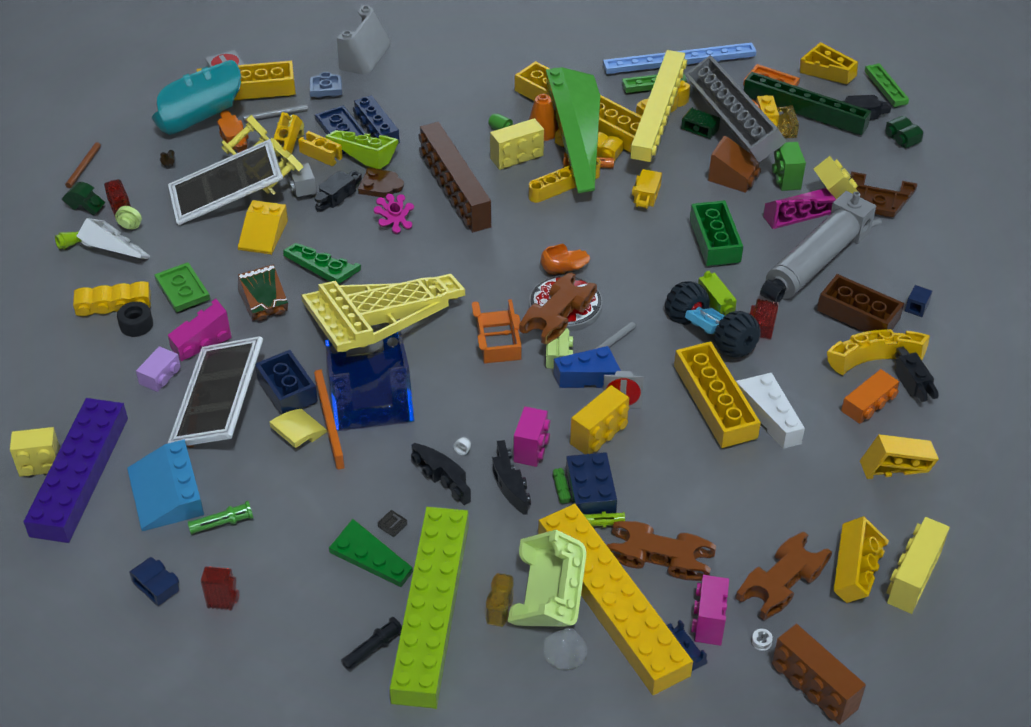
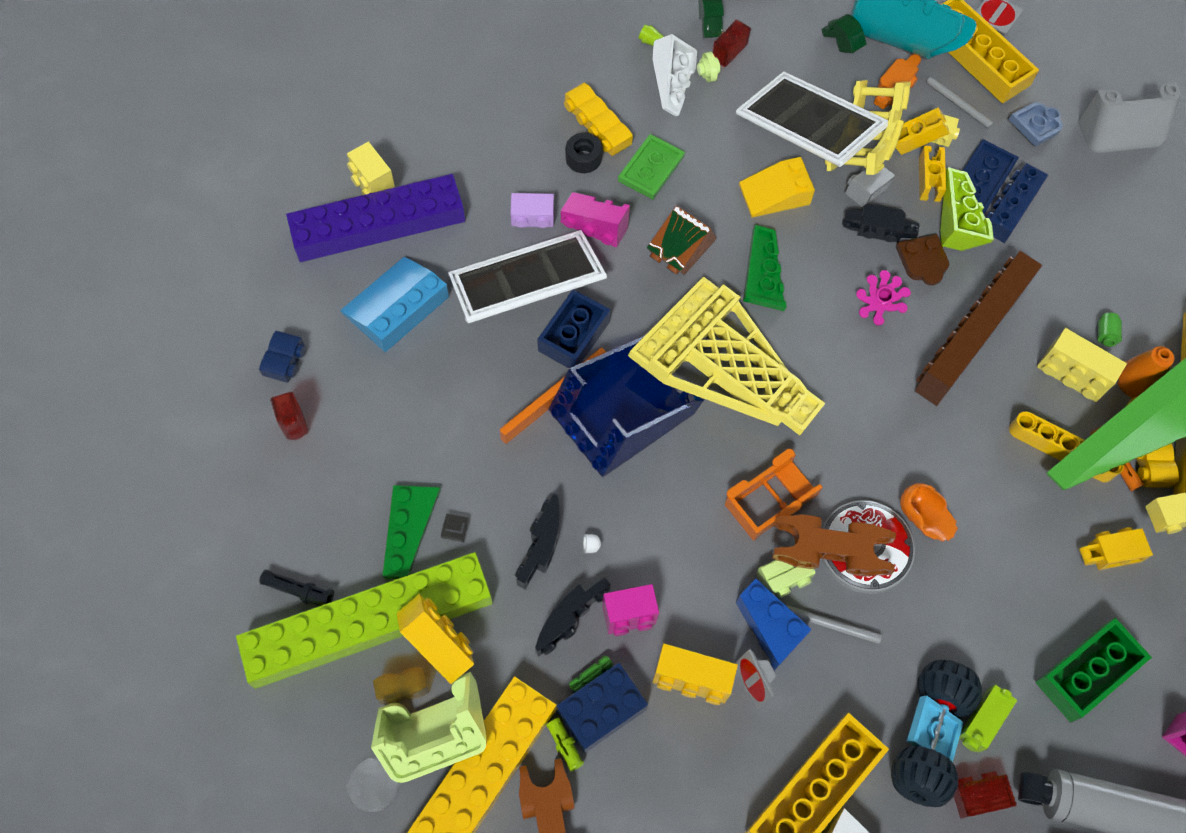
camera: 60 degrees right, 20 degrees up
(167, 159) = (818, 48): dark brown plate -> none
(171, 135) = (848, 33): none -> dark green brick
(195, 525) = (388, 376): bright green pin -> none
(297, 427) = (528, 372): light yellow slope -> none
(481, 549) = (435, 638): none -> yellow brick

